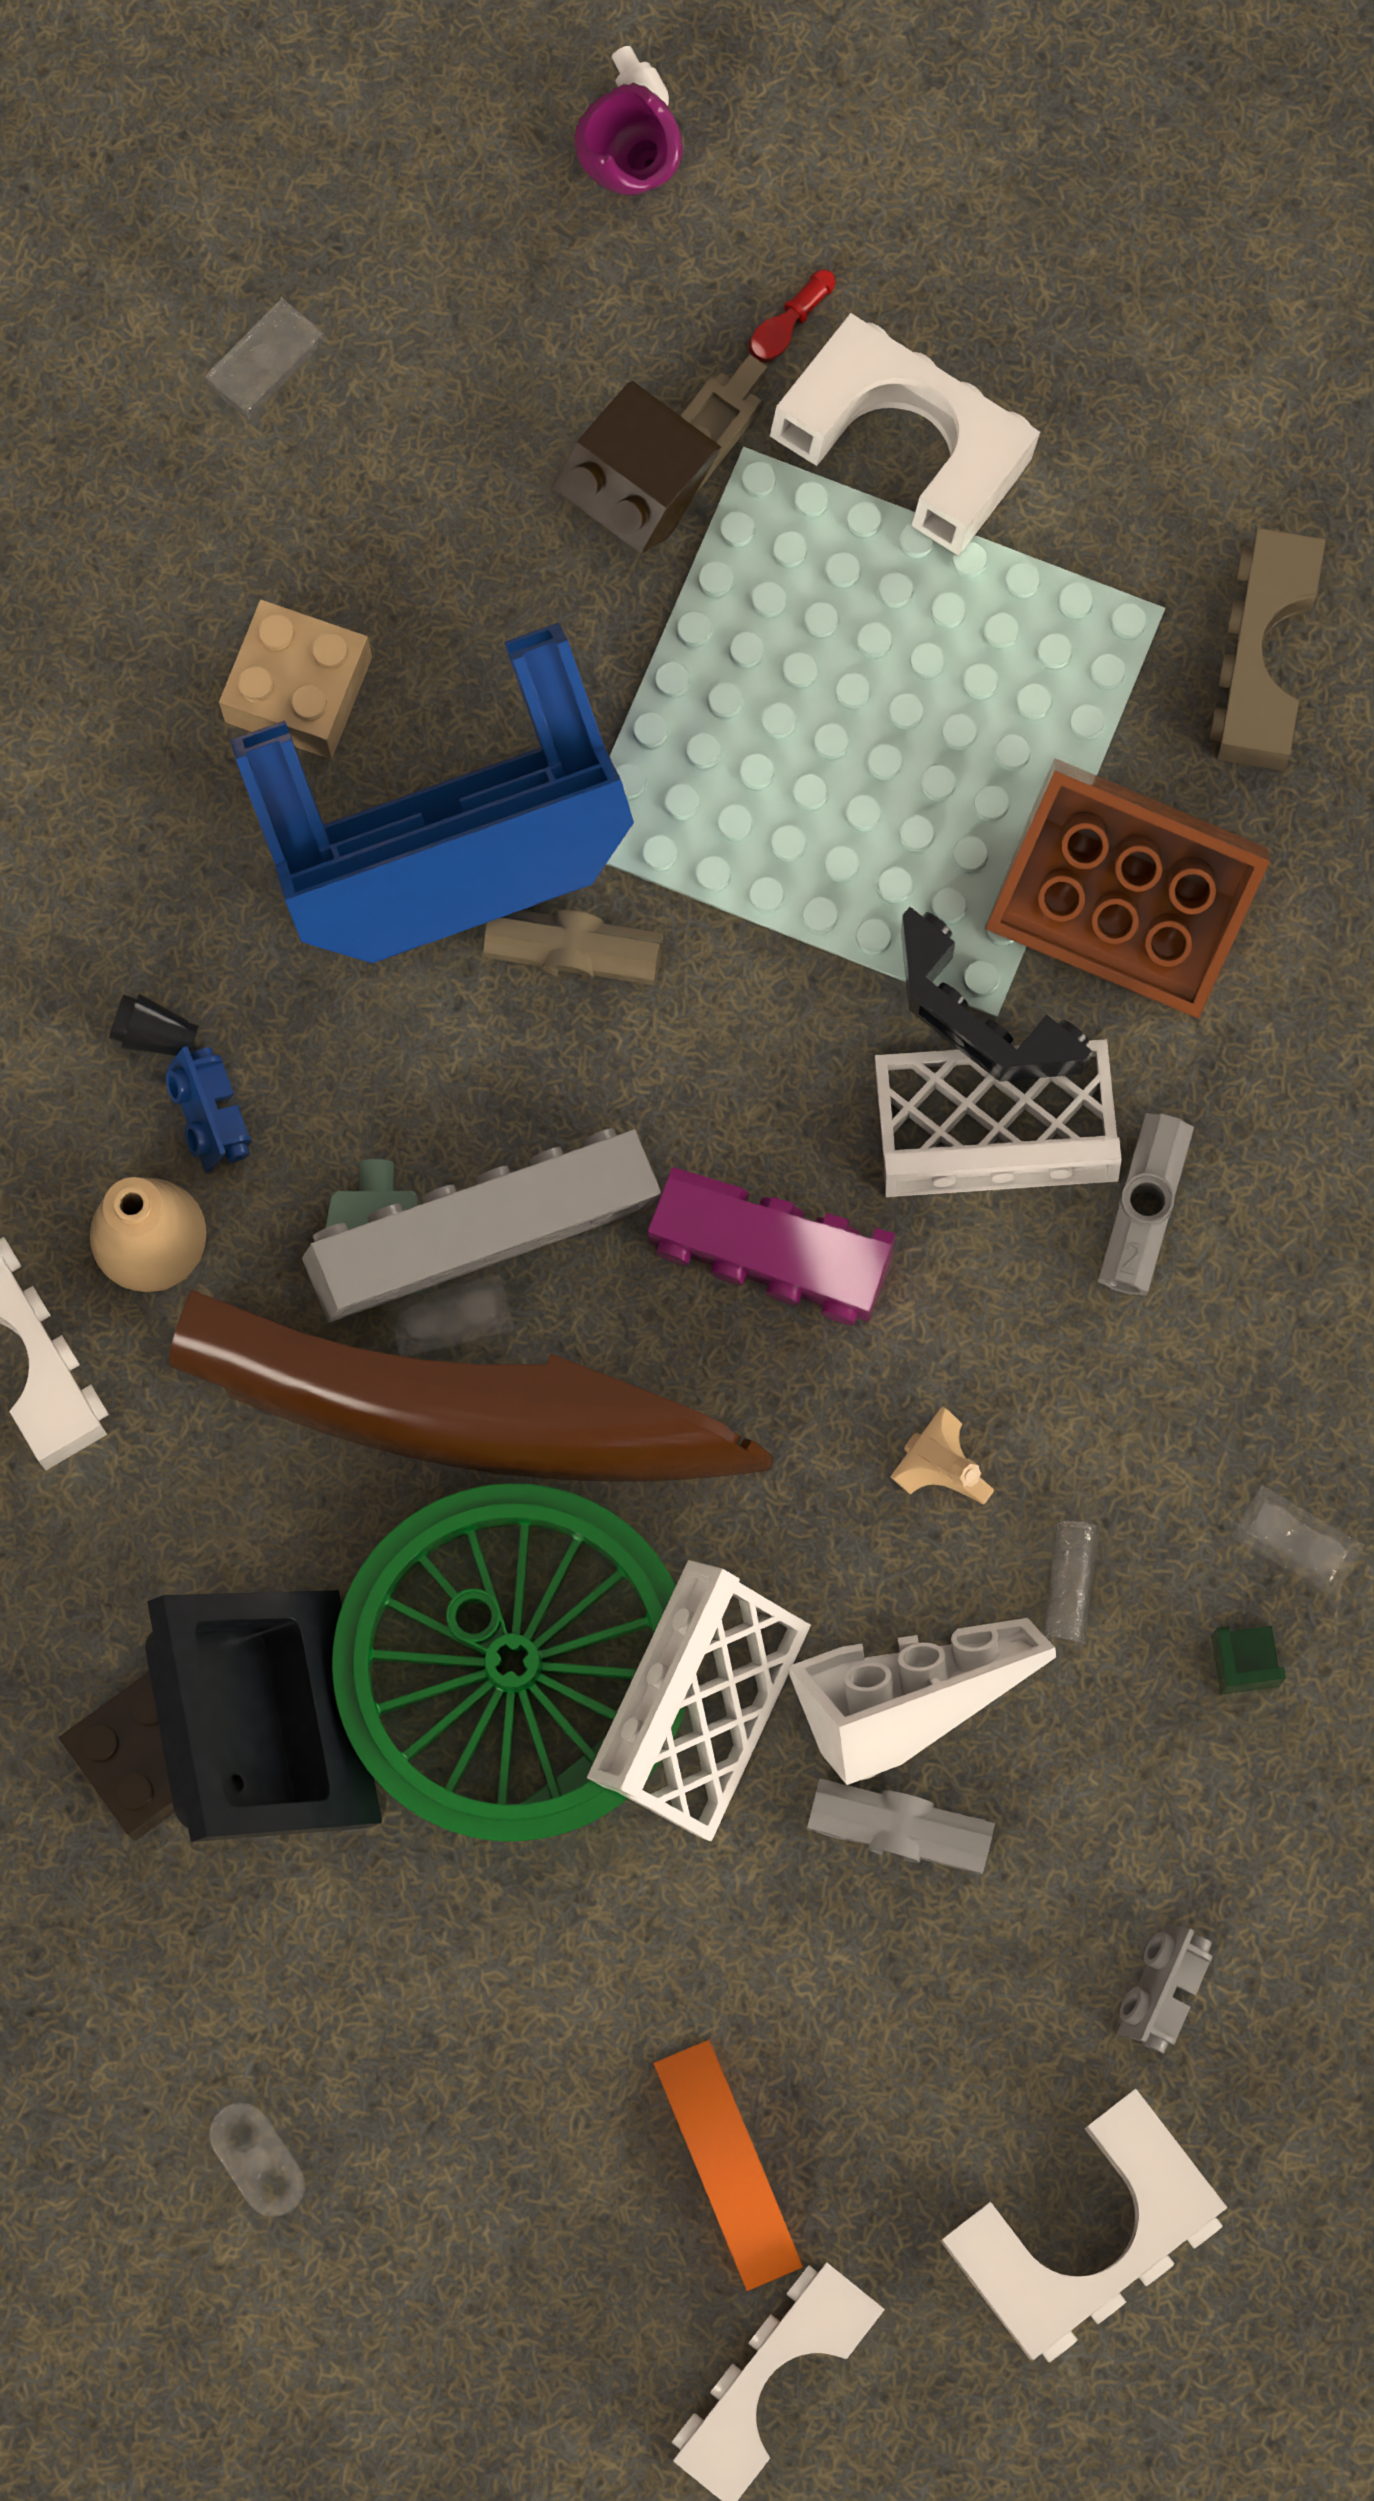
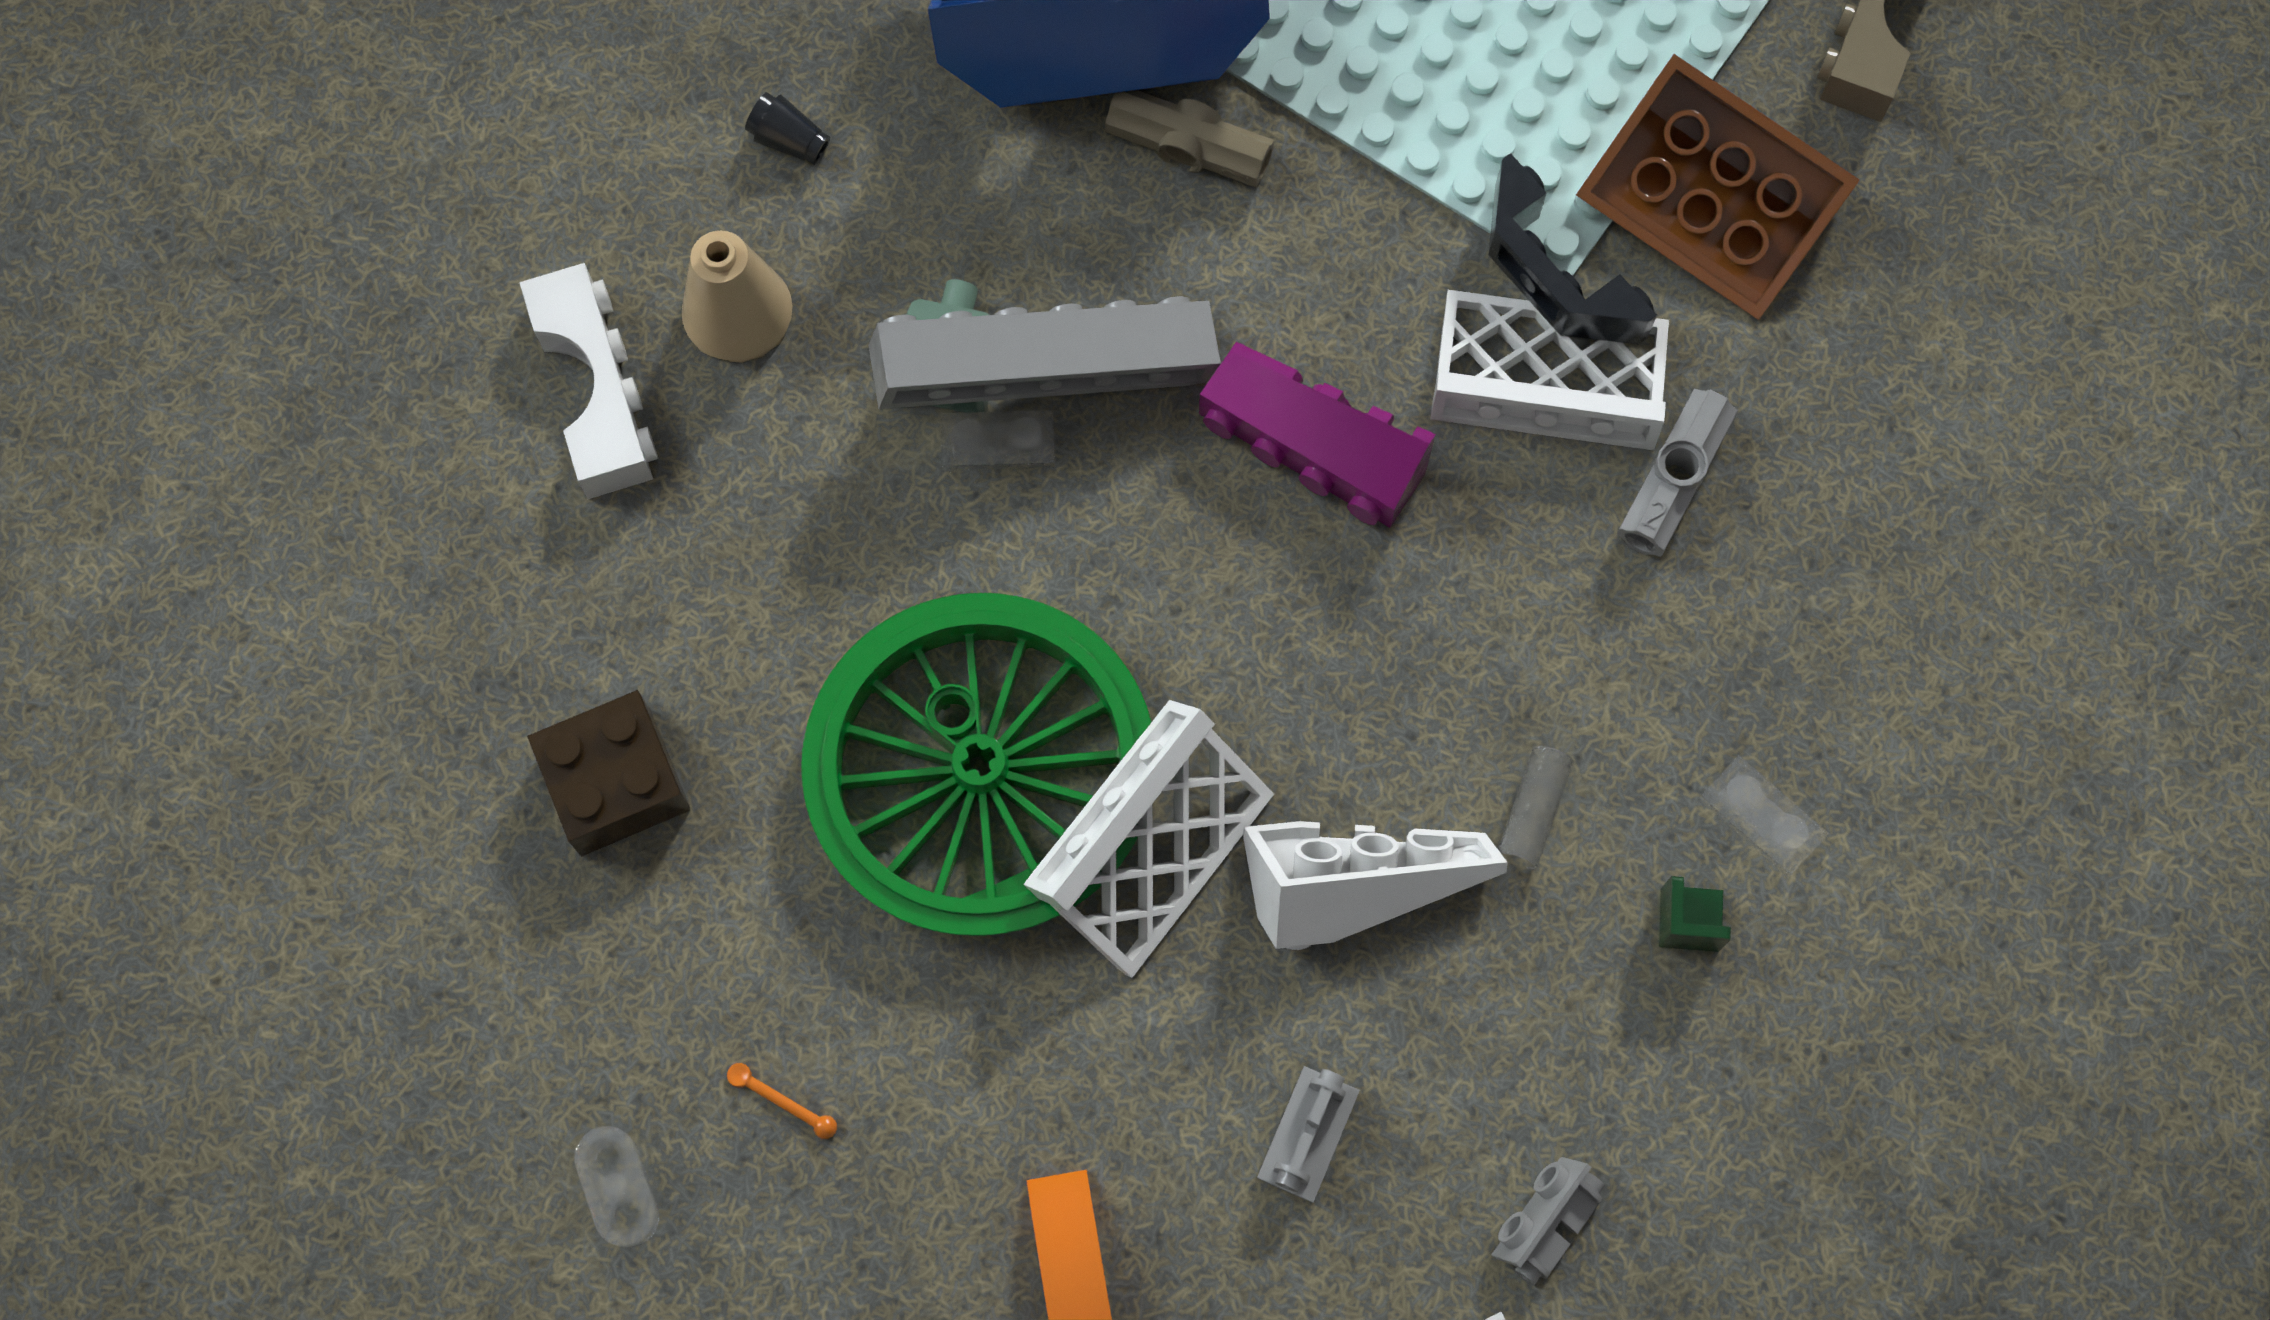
camera: 10 degrees right, 5 degrees down
(210, 1132) = (816, 187): blue hinge -> none
(254, 1715) = (716, 753): black piece -> none
(350, 2024) = (740, 1076): none -> orange hinge
(478, 1417) = (990, 523): reddish brown slope -> none
(901, 1826) = (1320, 1002): light grey piece -> none
(916, 1956) = (1308, 1133): none -> light grey hinge
(938, 1460) = (1430, 666): tan piece -> none

